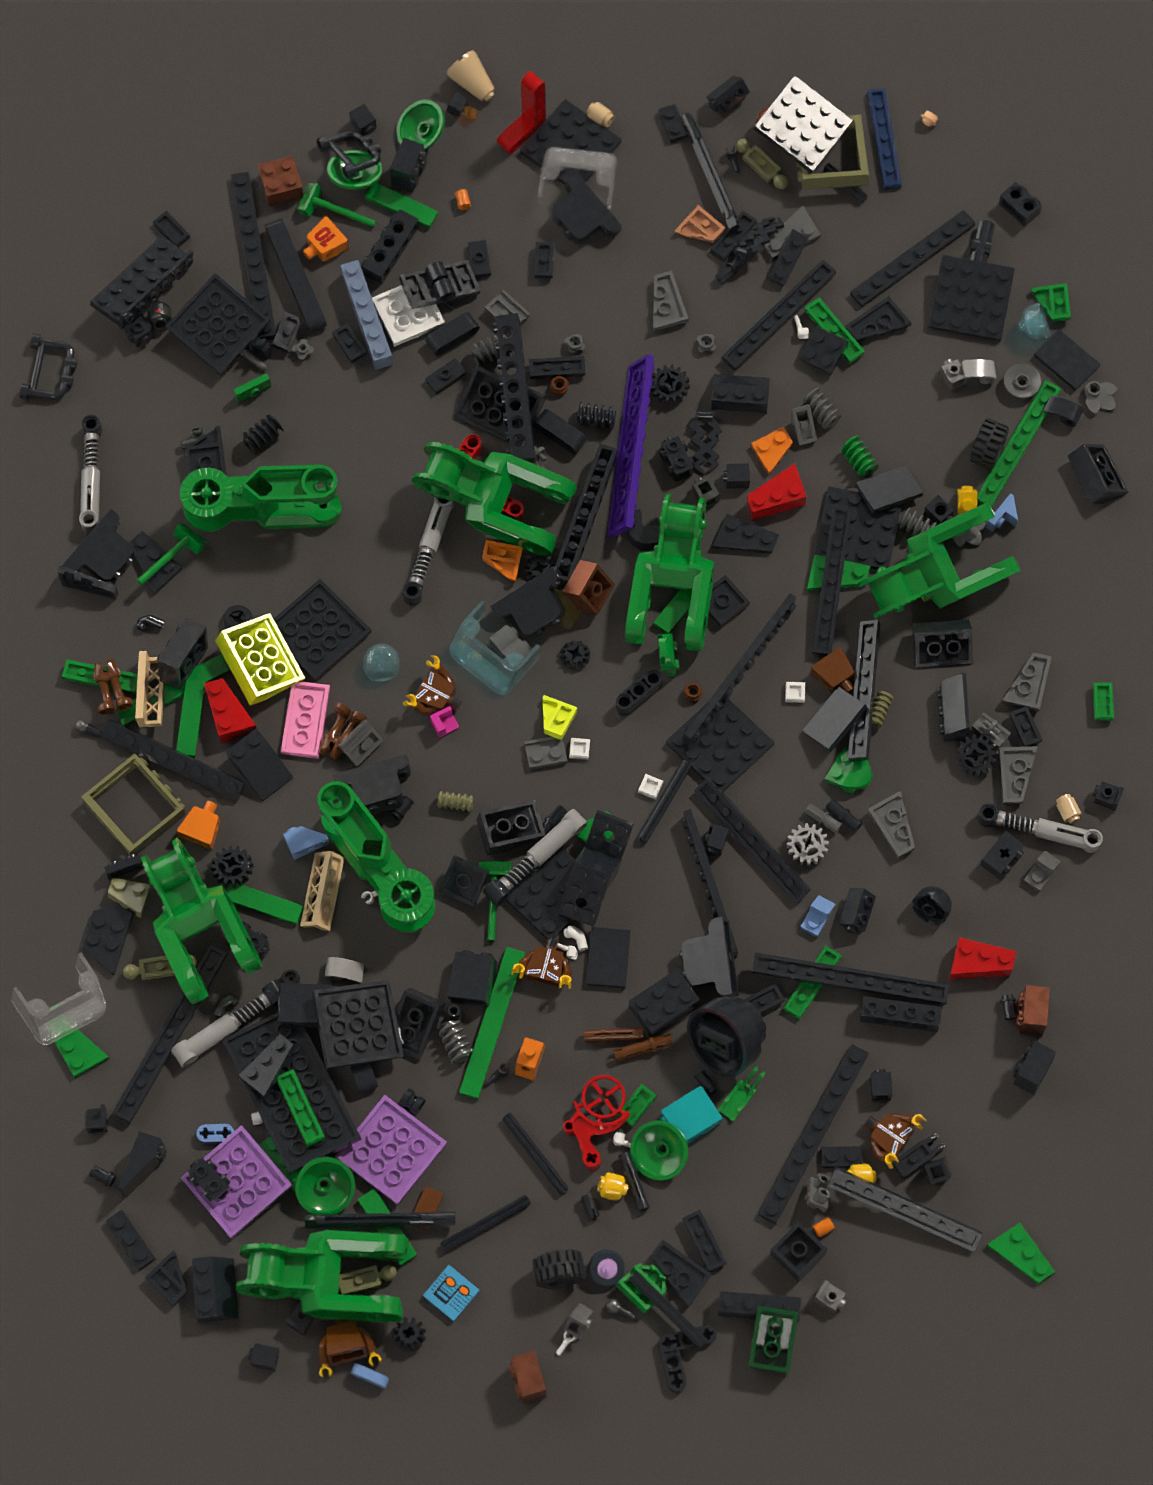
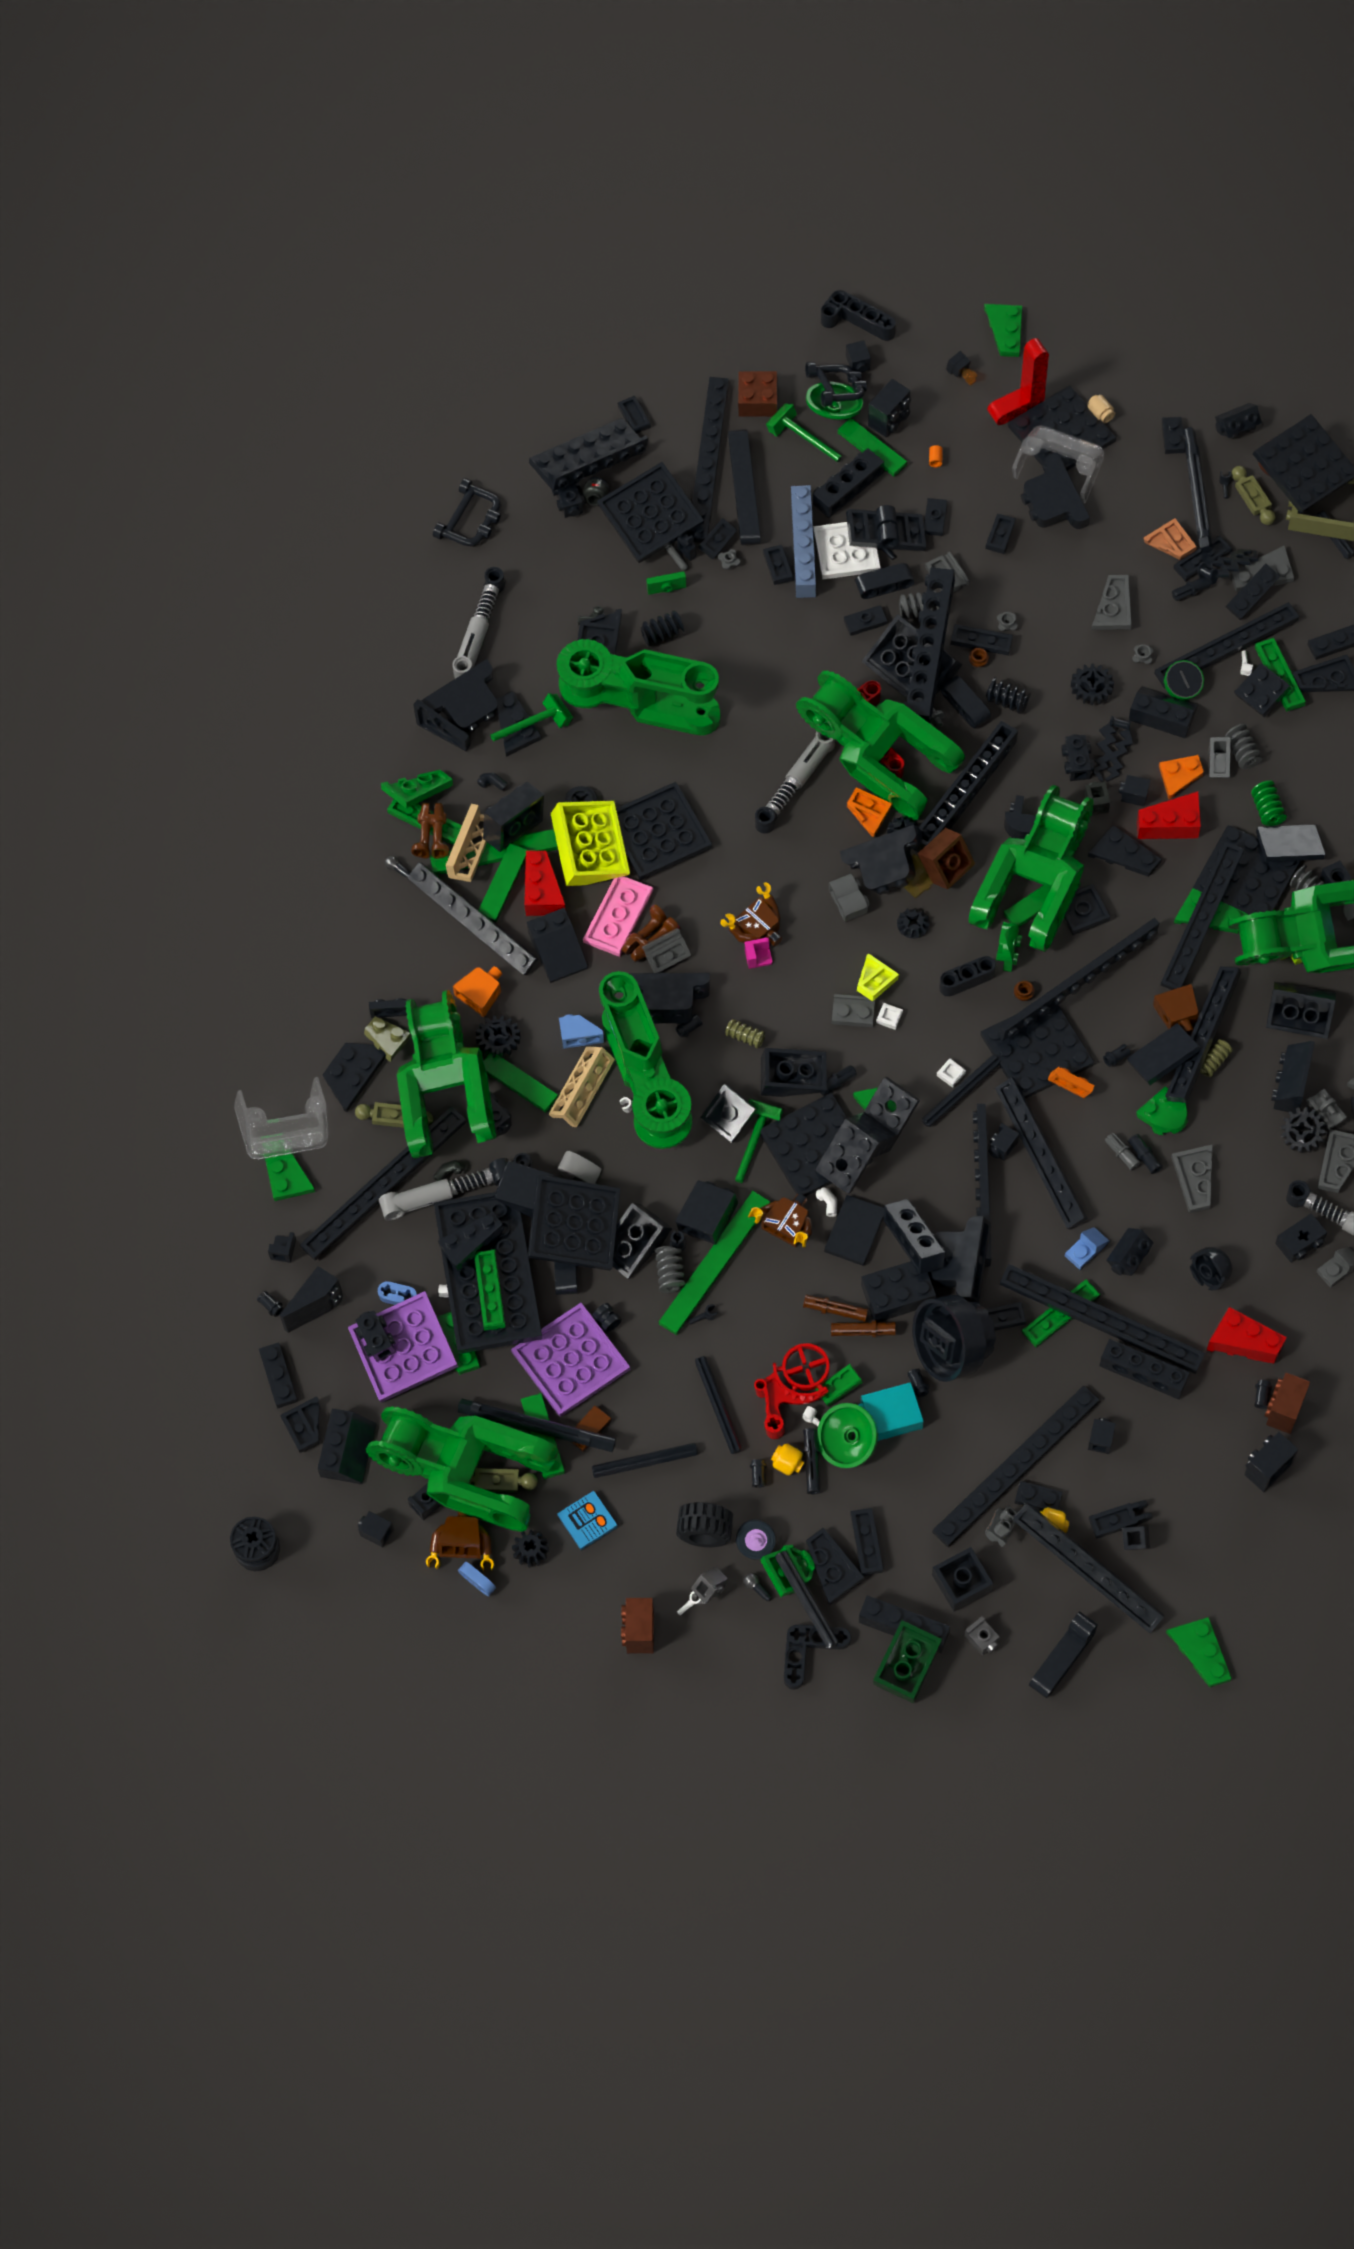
camera: 20 degrees right, 5 degrees down
(84, 650) = (418, 789): none -> green wing
(115, 776) = (407, 920): olive window -> none
(167, 1412) = (259, 1554): none -> black wheel
(325, 241) = (784, 462): orange torso -> none
(328, 1198) = (485, 1389): green dish -> none
(380, 81) = (857, 312): none -> black beam
(381, 662) = (712, 879): clear light blue cylinder -> none
(421, 123) = (917, 372): green dish -> none
(472, 76) = (981, 340): tan cone -> none
(482, 662) = (824, 916): clear light blue windscreen -> none
(491, 54) = (1006, 327): none -> green wing
(529, 1057) = (743, 1304): orange torso -> none
(570, 826) = (855, 1086): piece -> none
(571, 951) = (818, 1213): white hand -> none
(630, 446) = (1032, 733): dark purple plate -> none
(664, 950) = (914, 1236): none -> black brick
(740, 1096) = (951, 1405): green arm -> none
(751, 359) = (1183, 680): none -> black tile
(764, 768) = (1070, 1082): none -> orange plate
(793, 729) = (1116, 1055): none -> black pin
(795, 692) = (1131, 1019): white tile -> none
(800, 842) = (1101, 1180): light grey gear -> none
(823, 1227) = (997, 1563): orange hinge -> none
(891, 1135) = (1098, 1488): reddish brown torso -> none
(905, 1294) = (1064, 1655): none -> black beam

